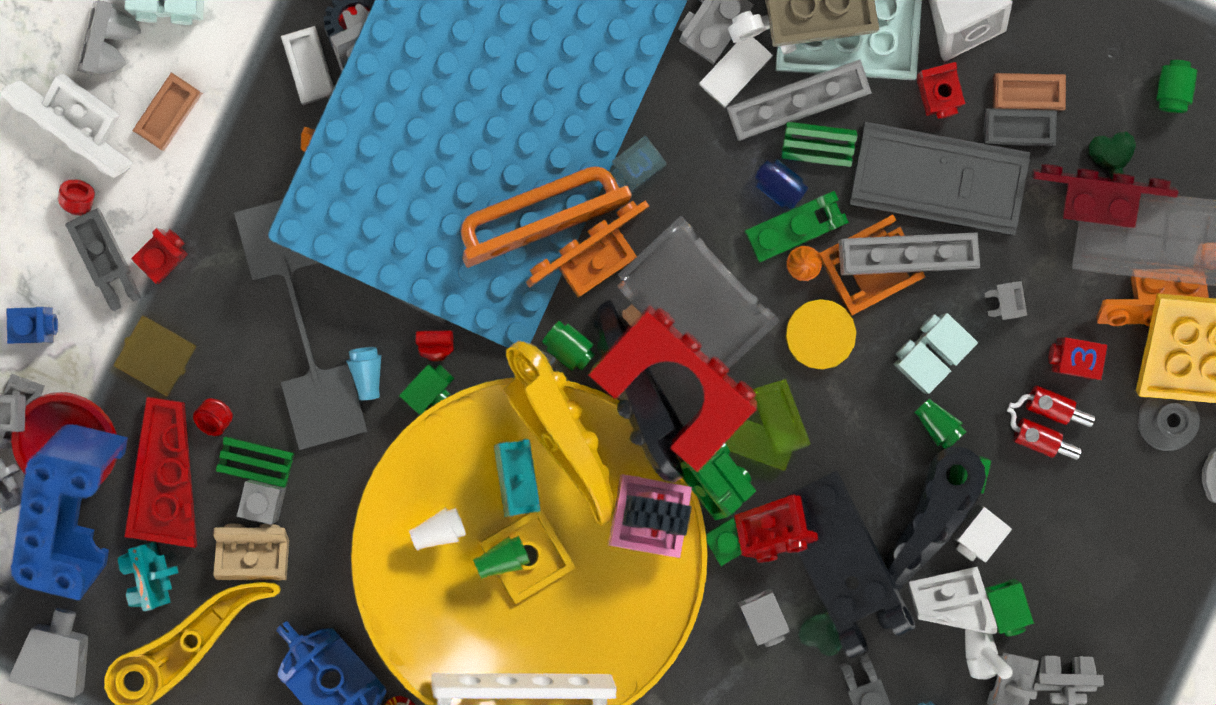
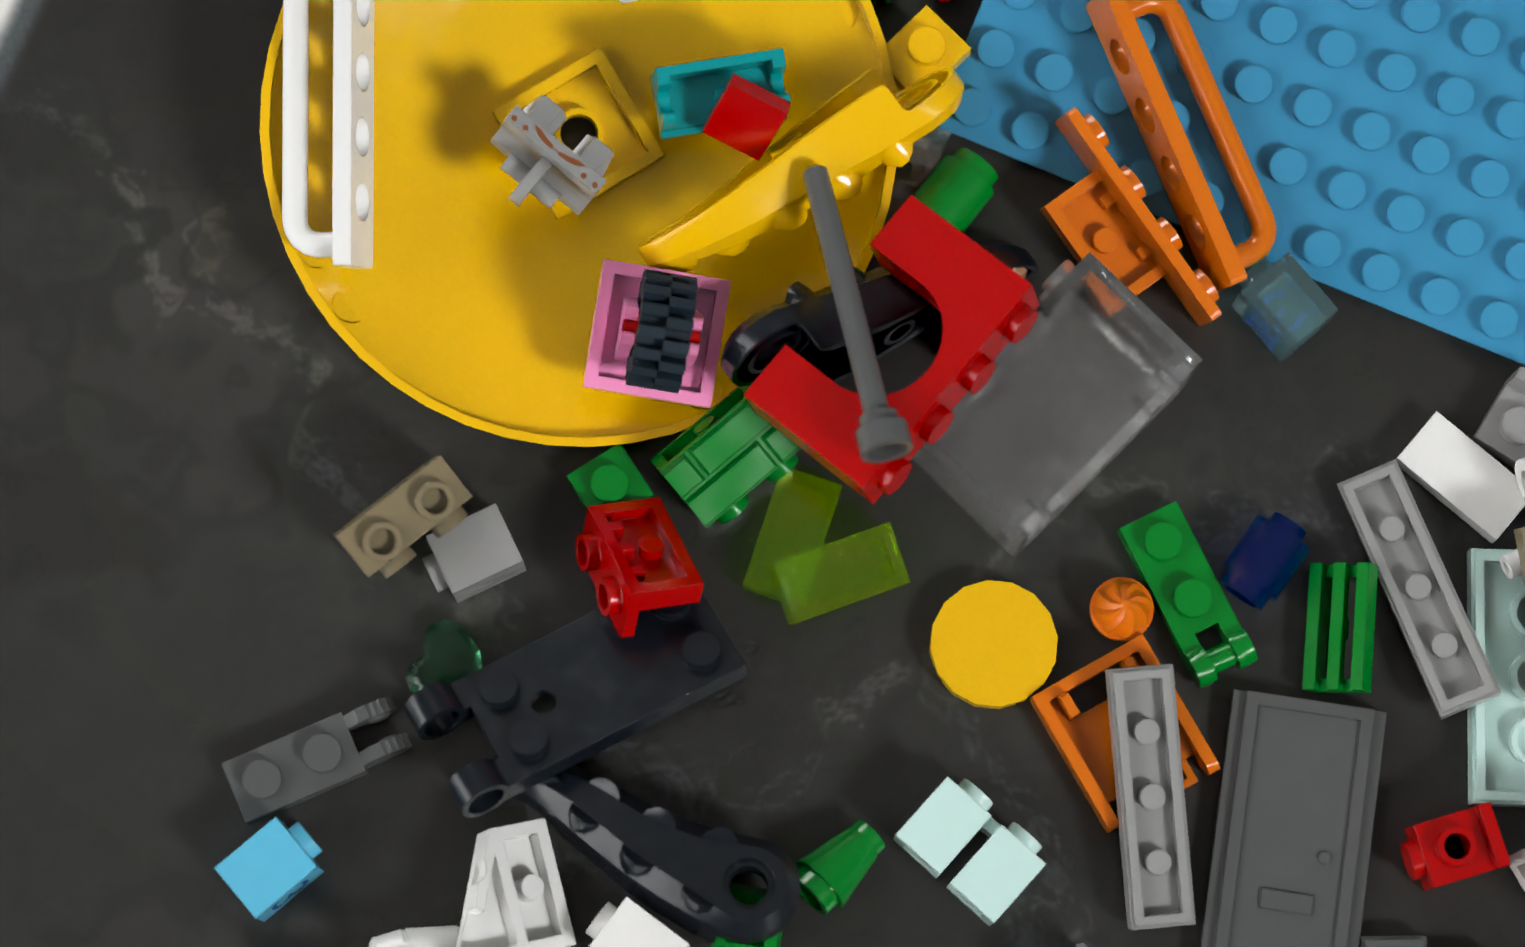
camera: 80 degrees right, 10 degrees down
(488, 360) = (924, 47): none -> yellow bracket
(502, 558) = (579, 70): green cone -> none
(535, 464) = (746, 117): none -> red tile
(542, 586) = (544, 163): none -> light grey hips
(726, 398) = (881, 432): none -> dark grey piece
(747, 659) = (419, 503): none -> dark tan plate

